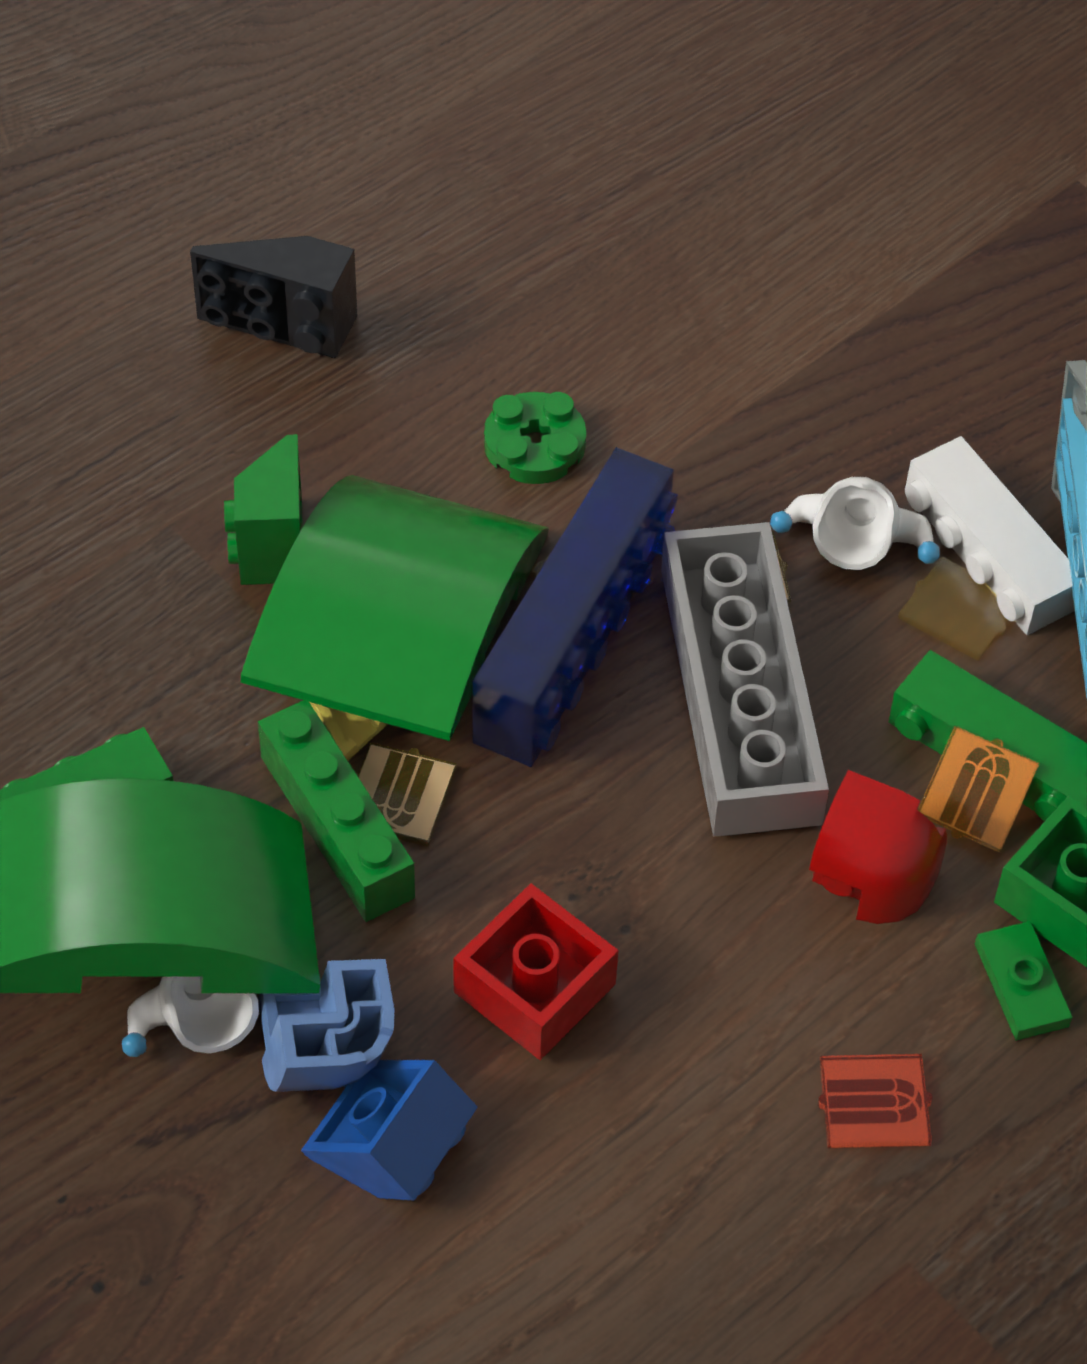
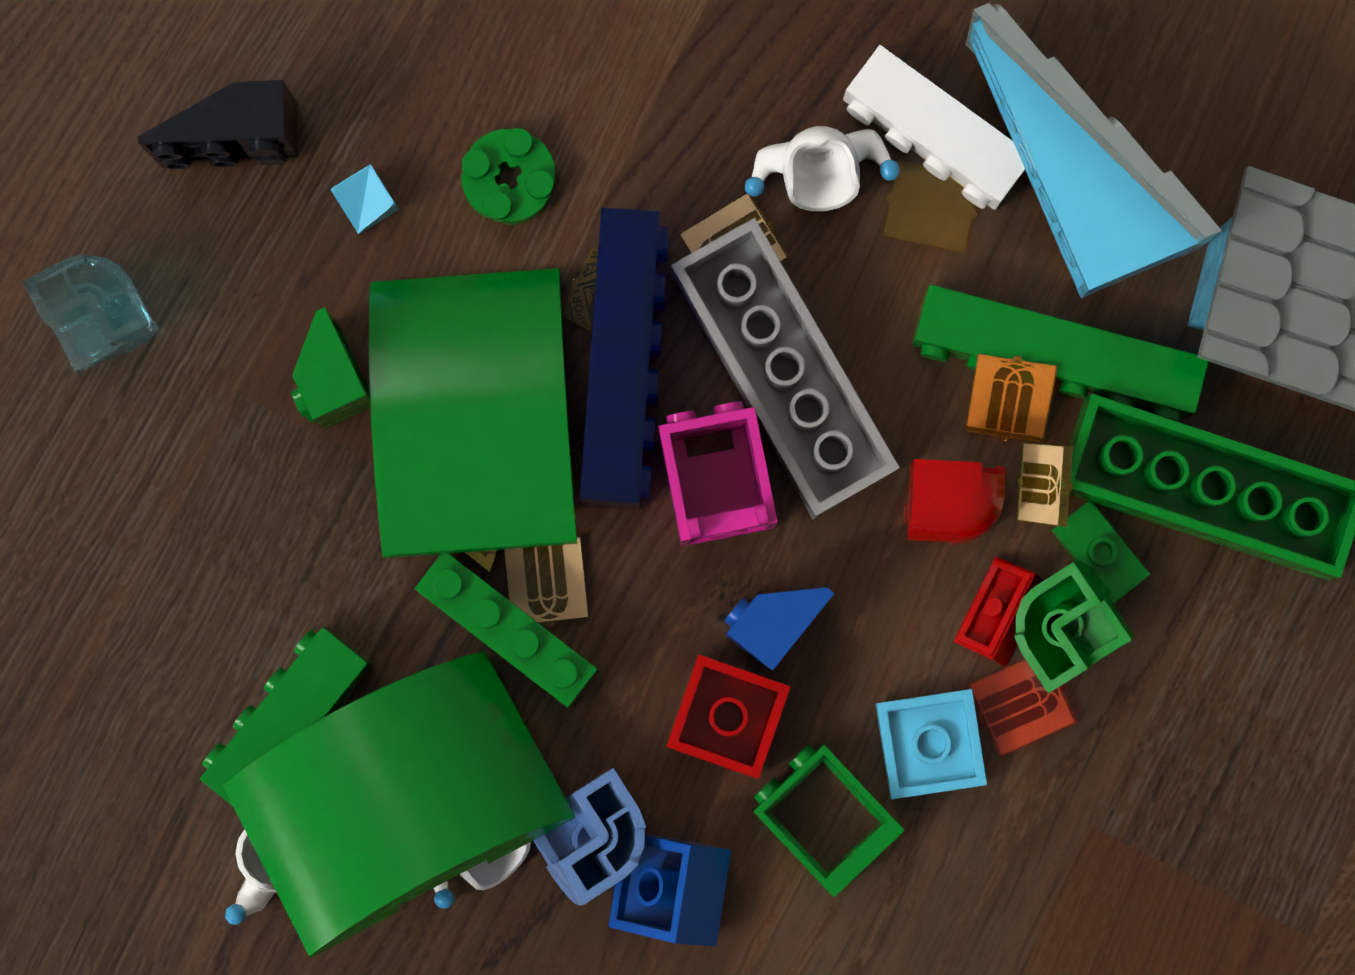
camera: 20 degrees left, 30 degrees up
(69, 388) = (91, 309): none -> clear light blue brick
(382, 403) = (364, 199): none -> medium azure slope
(618, 1173) = (856, 858): none -> green window
(622, 777) = (721, 490): none -> dark pink container
(635, 890) = (774, 622): none -> blue slope
(752, 1094) = (931, 744): none -> medium azure plate
(888, 999) = (992, 616): none -> red slope
(958, 1021) = (1068, 625): none -> green brick
(984, 872) = (1045, 484): none -> piece

